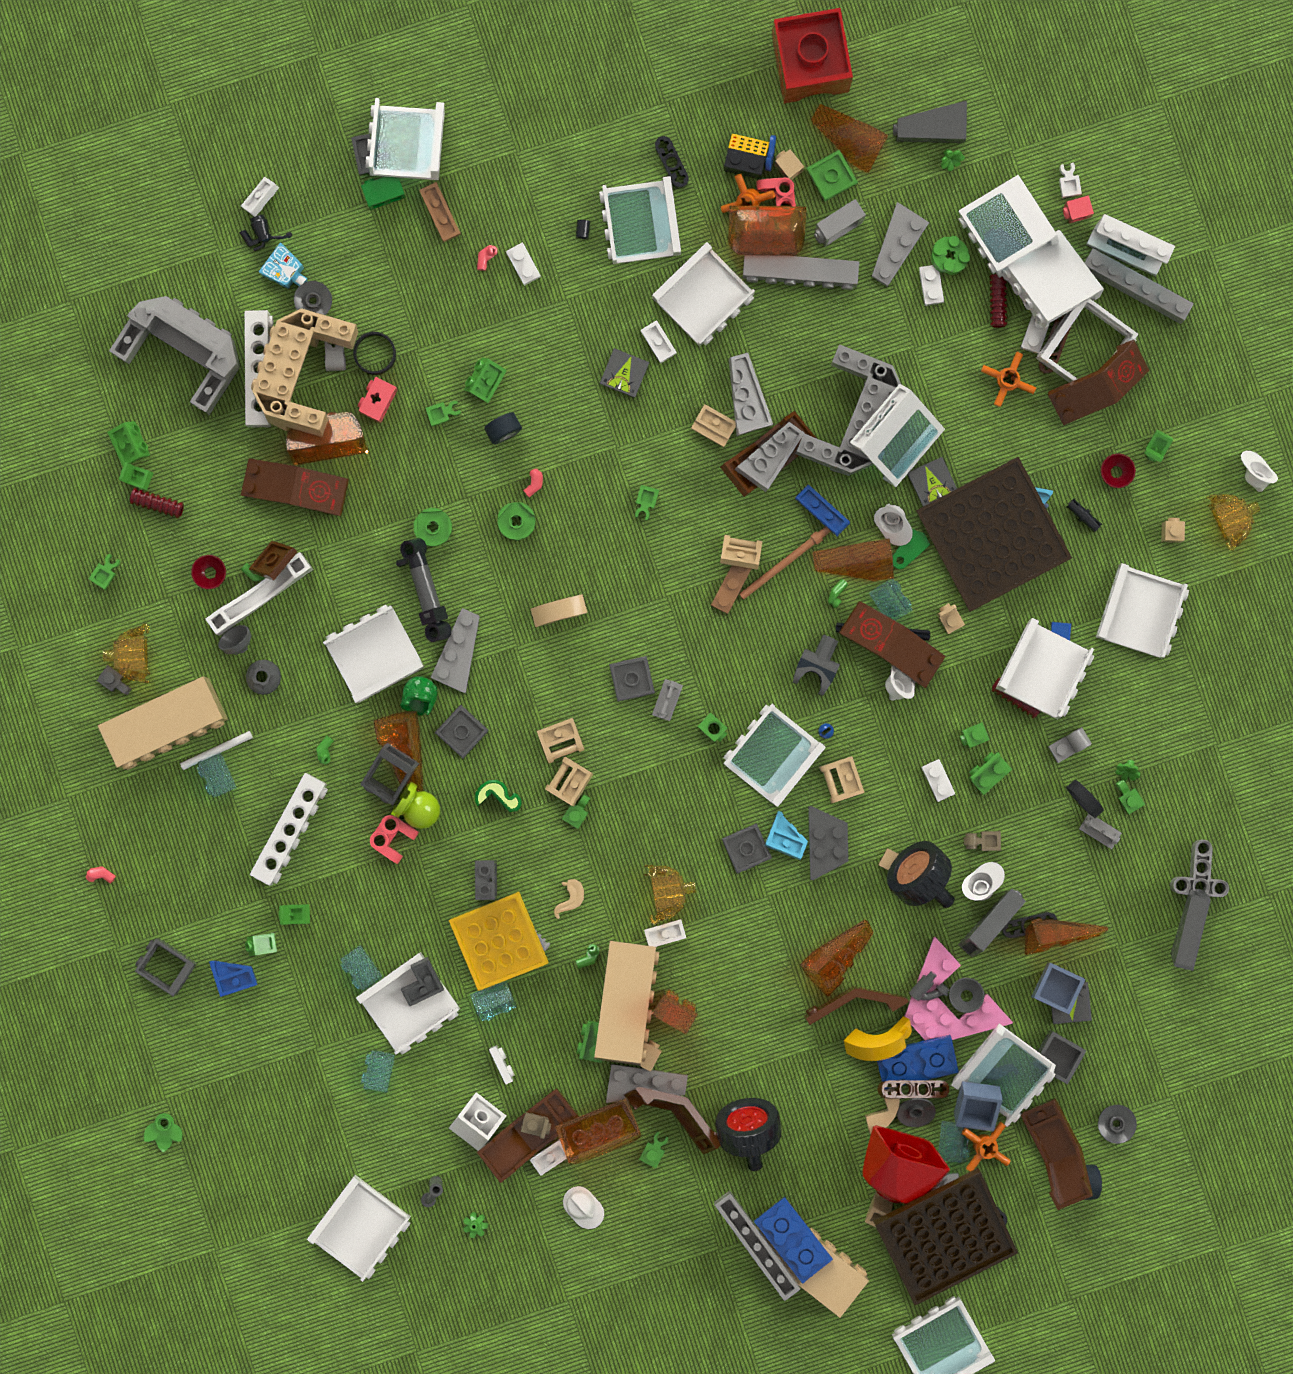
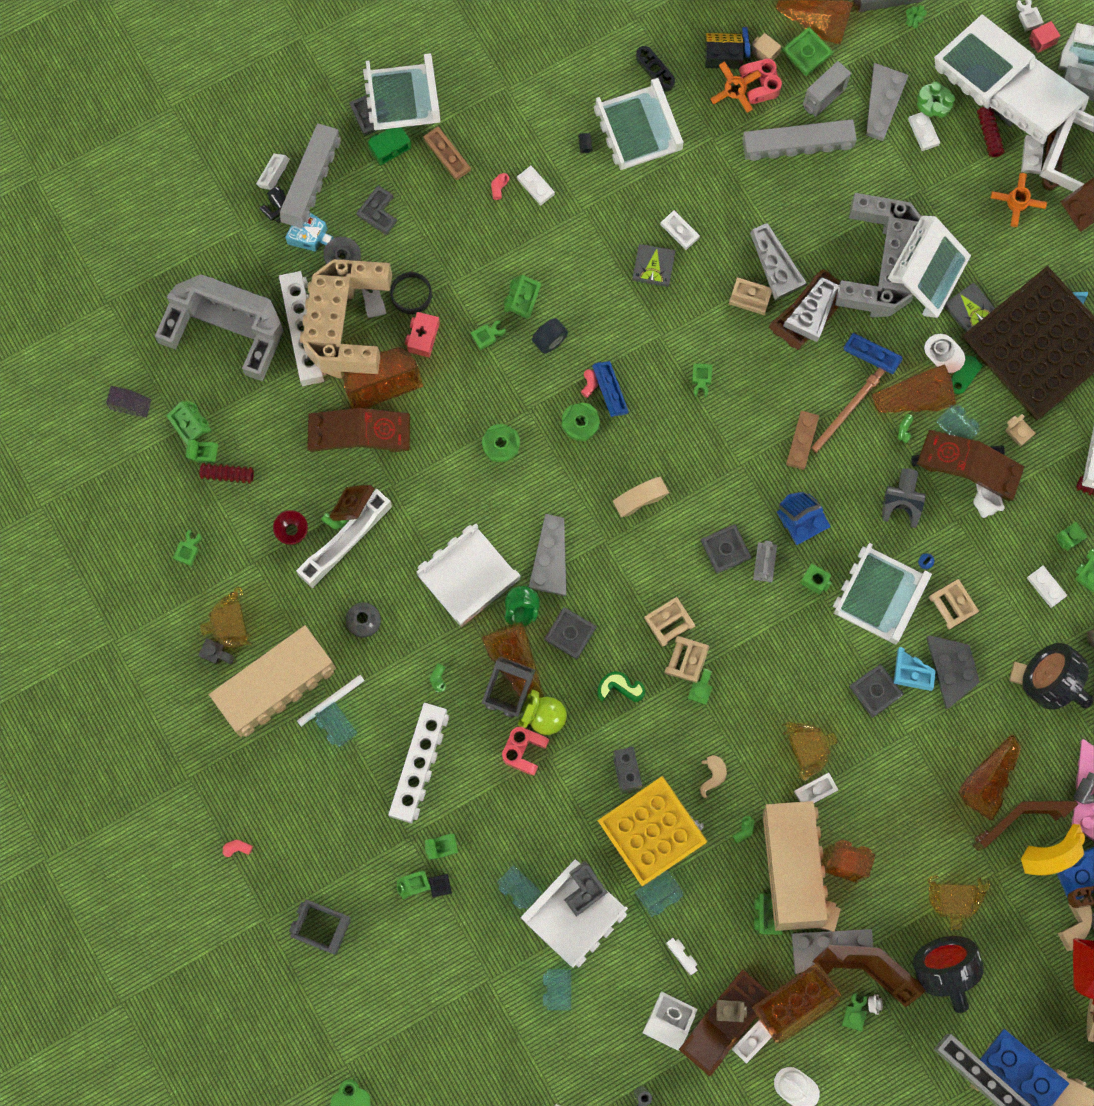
camera: 15 degrees left, 10 degrees down
(72, 410) = (128, 402): none -> slope
(232, 977) = (390, 924): blue wing -> none
(235, 640) = (329, 588): dark grey piece -> none
(287, 950) = (440, 885): none -> black tile
(295, 211) = (310, 175): none -> light grey brick
(353, 258) = (373, 211): none -> dark grey tile
(432, 613) = (518, 523): black piece -> none
(552, 493) = (610, 388): none -> blue tile
(674, 1146) = (875, 1004): none -> white plate
(703, 295) = (712, 180): white panel -> none
(713, 662) = (802, 516): none -> blue piece
(741, 552) = (804, 407): tan plate -> none
(766, 230) = (759, 107): clear orange windscreen -> none
(773, 1065) = (956, 900): none -> clear yellow torso

